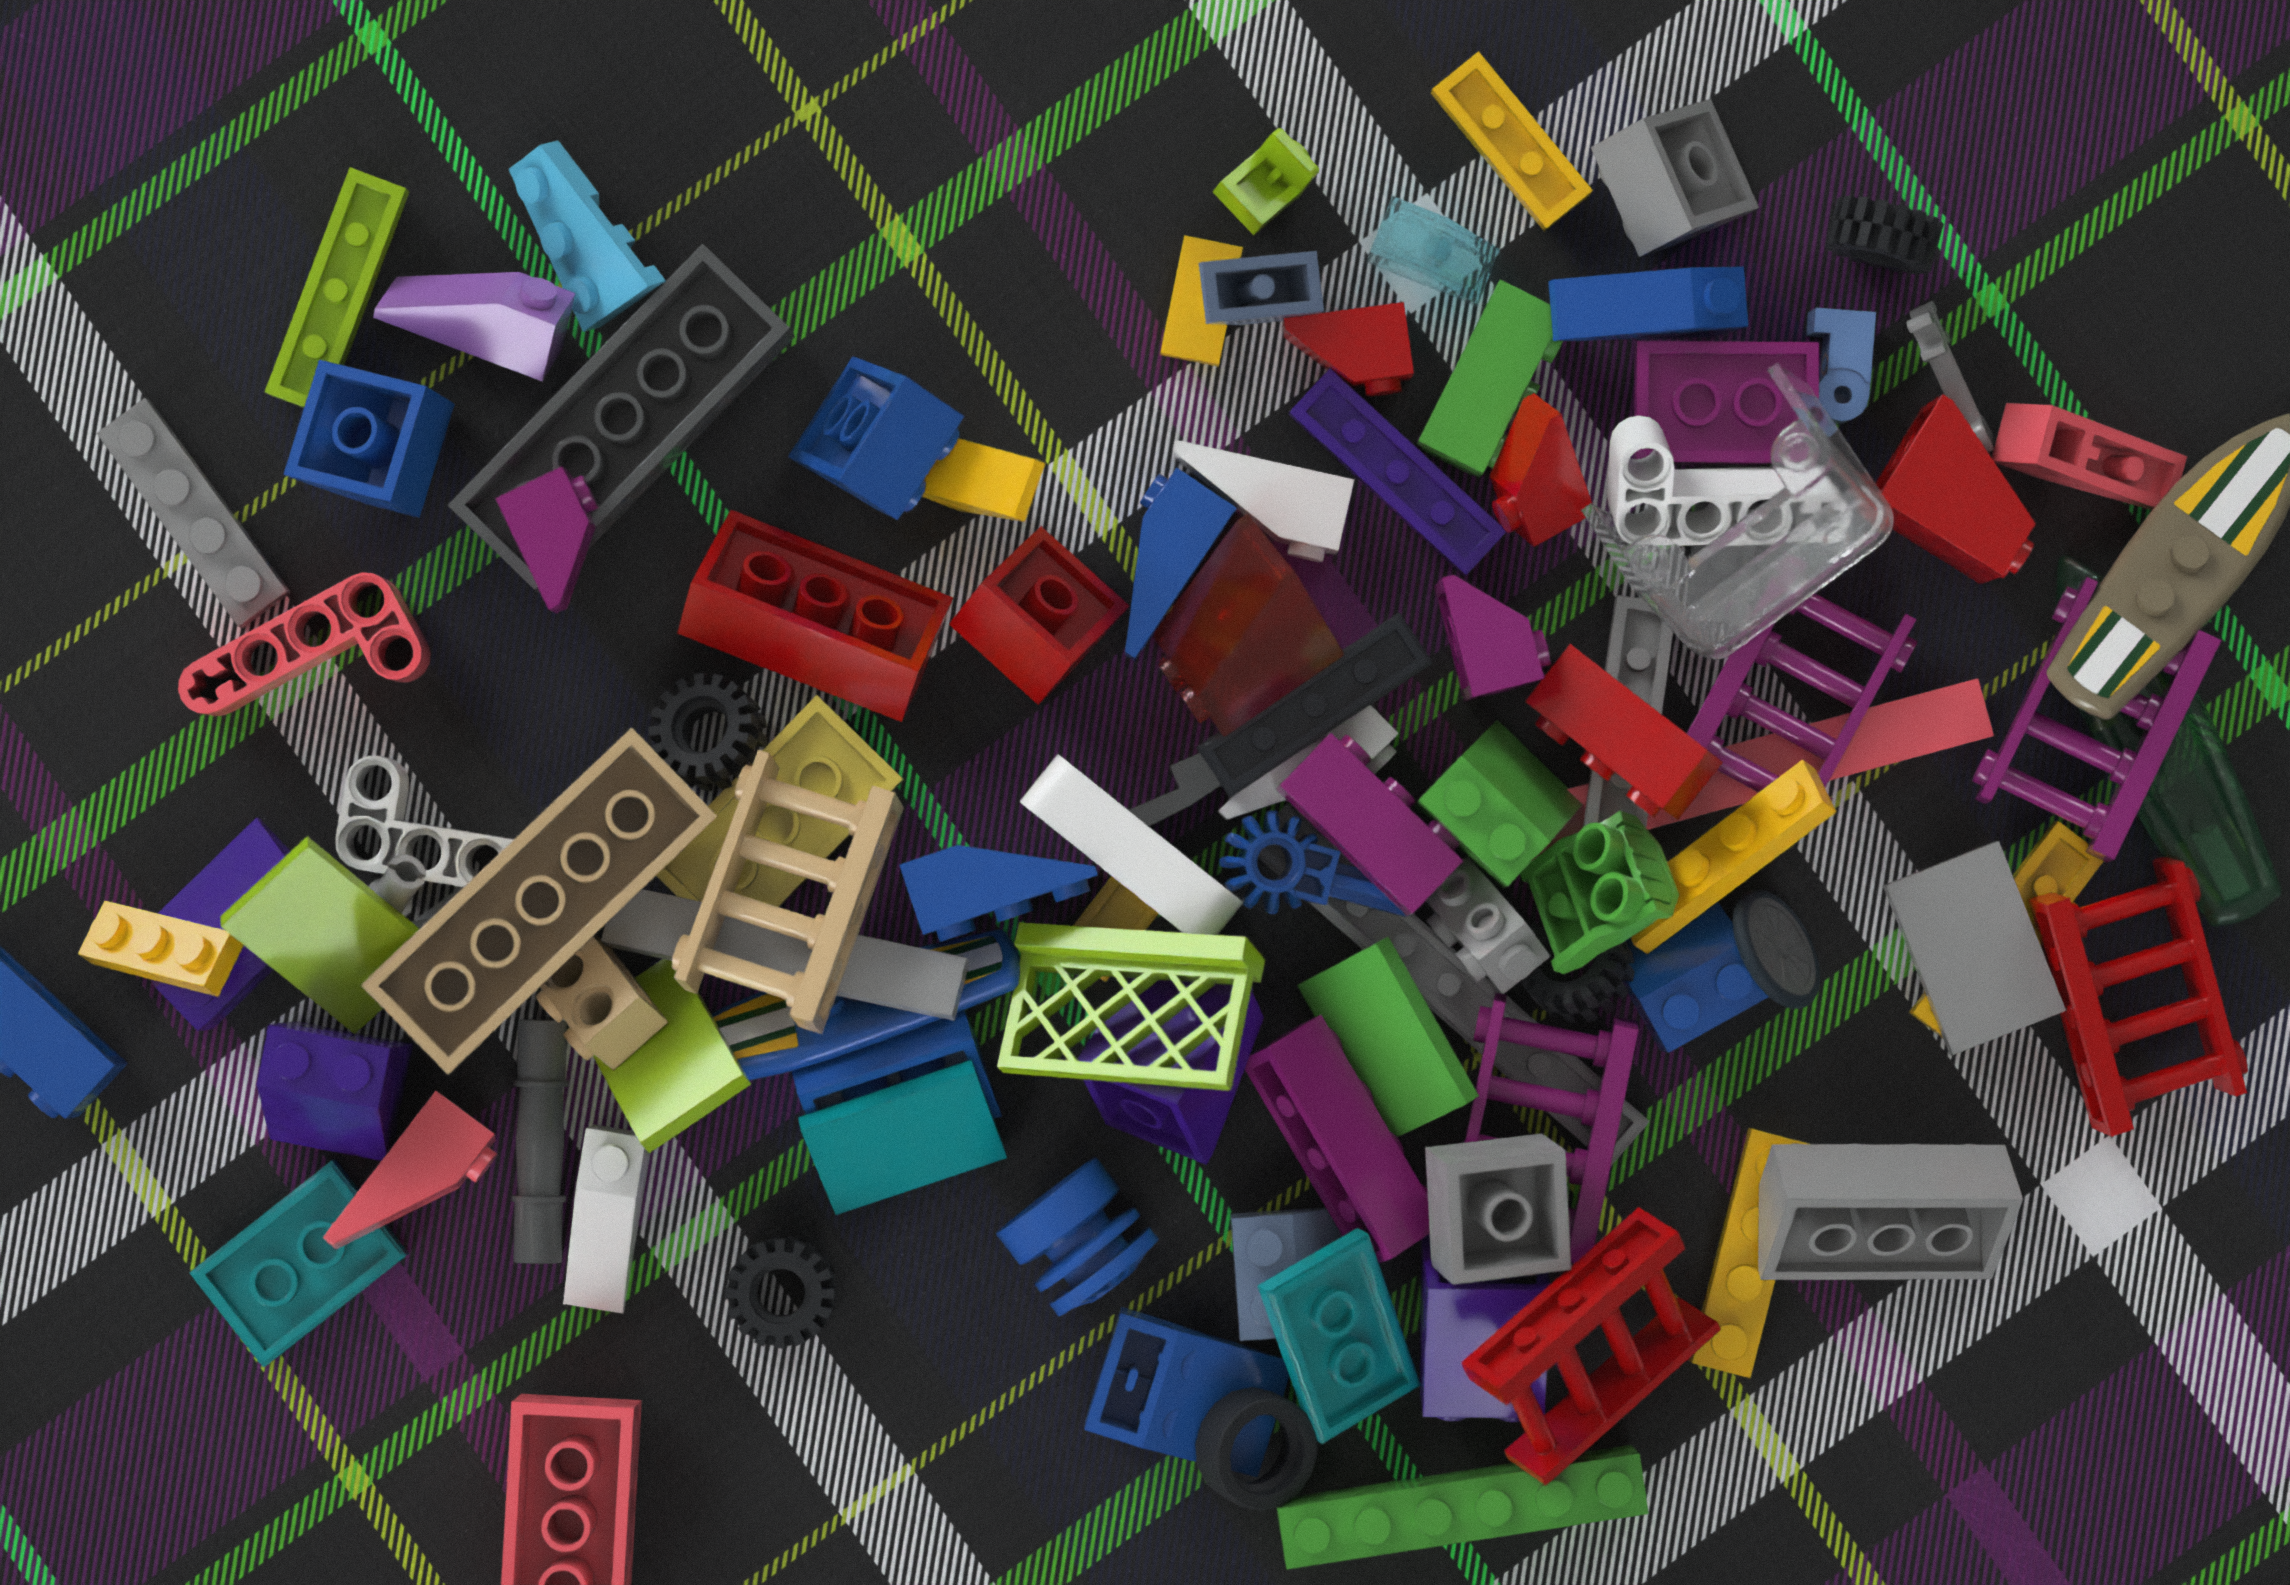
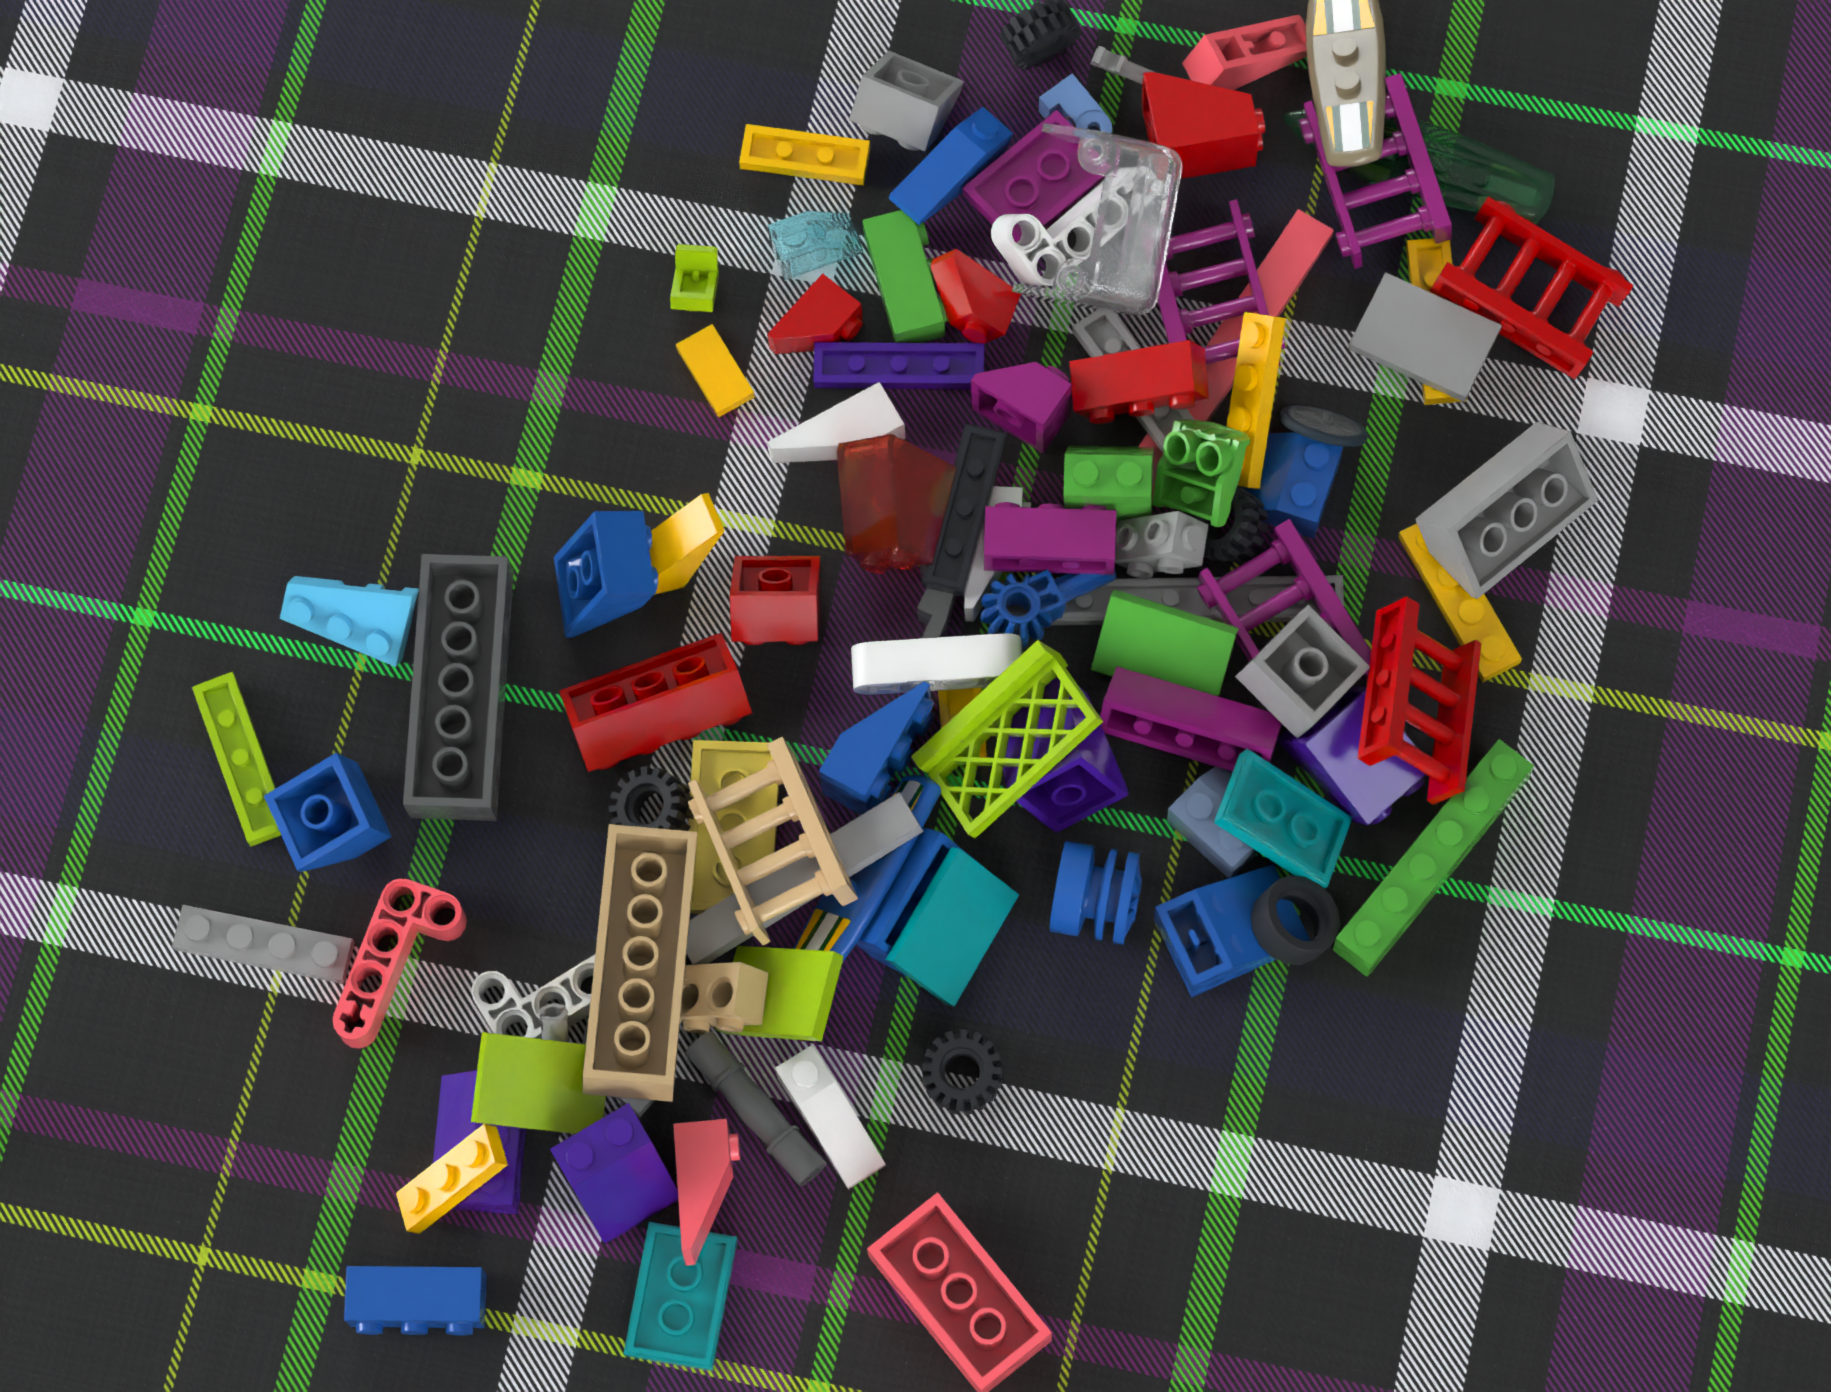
camera: 30 degrees left, 15 degrees down
(490, 315) = (339, 695): medium lavender slope -> none
(552, 530) = (470, 762): magenta slope -> none
(1174, 540) = (812, 501): blue slope -> none
(1261, 288) = (742, 327): sand blue slope -> none

